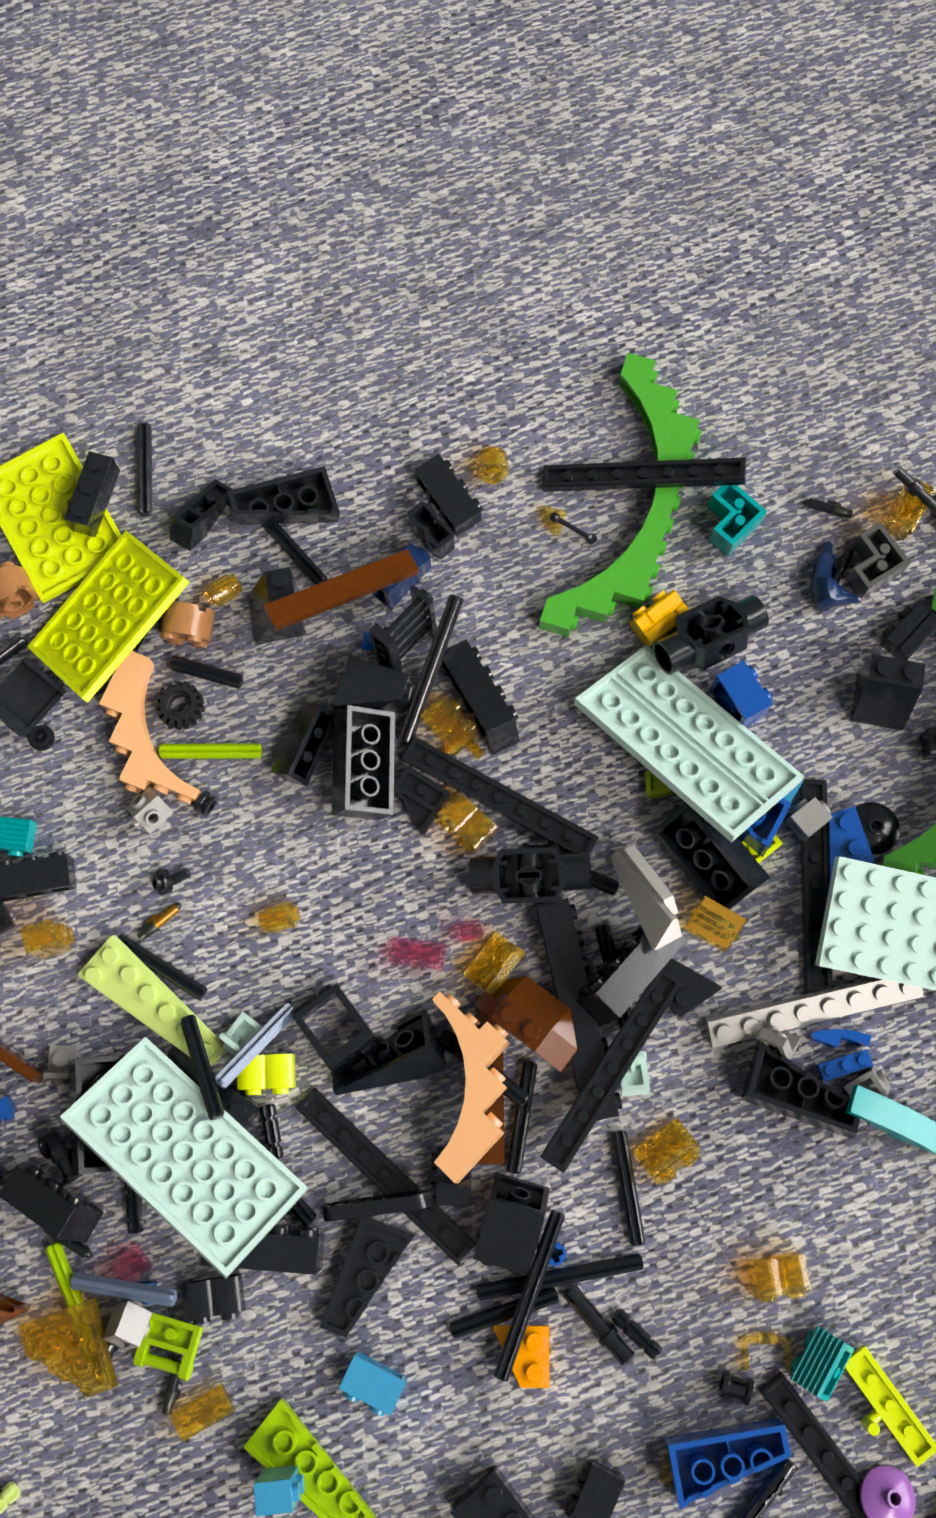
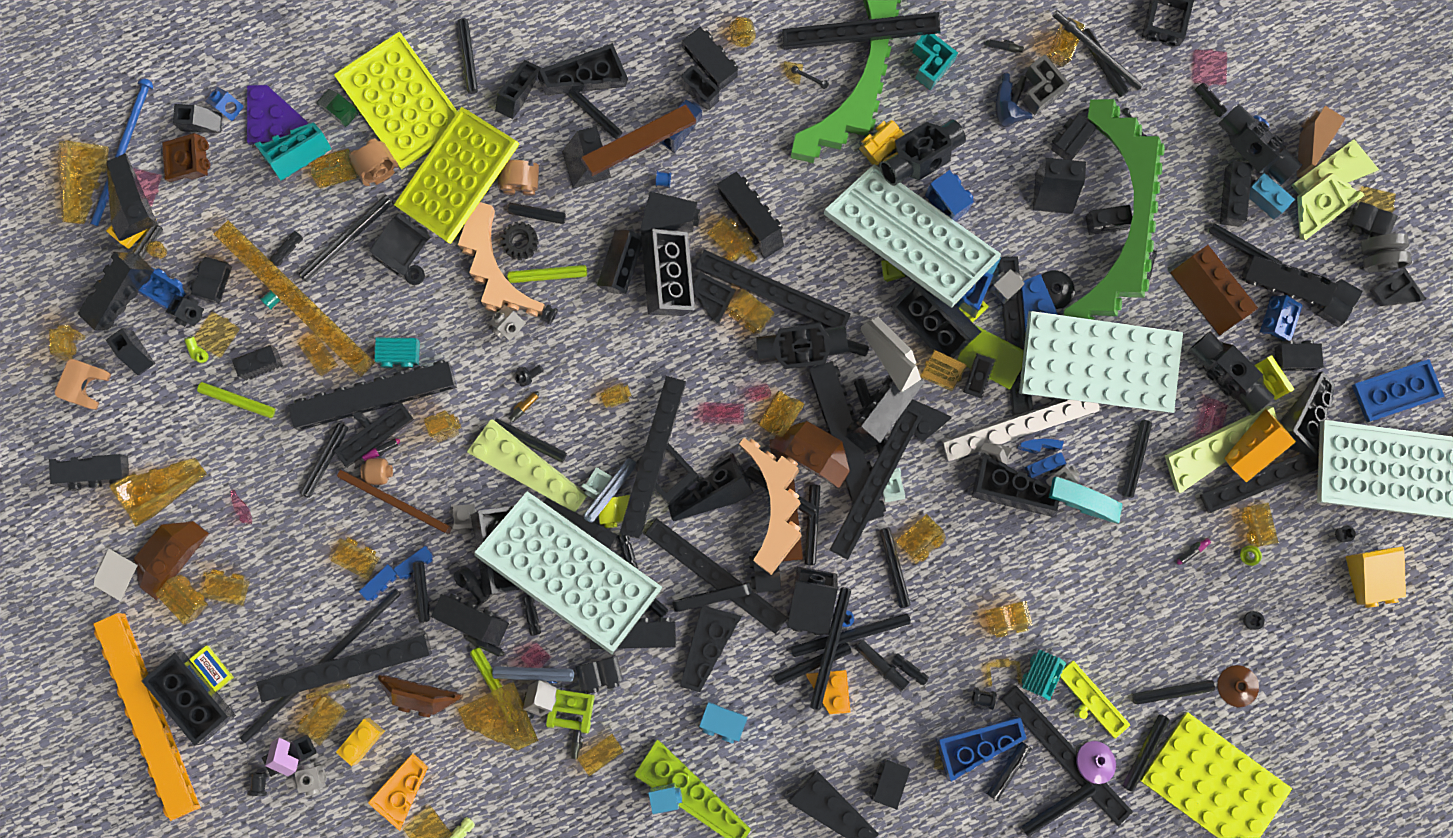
camera: 15 degrees left, 5 degrees up
(92, 494) = (431, 79): black brick -> none
(202, 1067) = (573, 508): black axle -> none
(222, 590) = (542, 148): clear yellow brick -> none
(316, 1008) = (652, 457): none -> black plate
(405, 631) = (681, 178): black fence -> none
(430, 668) = (711, 196): black axle -> none
(763, 935) = (979, 375): none -> black brick
(784, 913) = (1008, 357): none -> lime piece

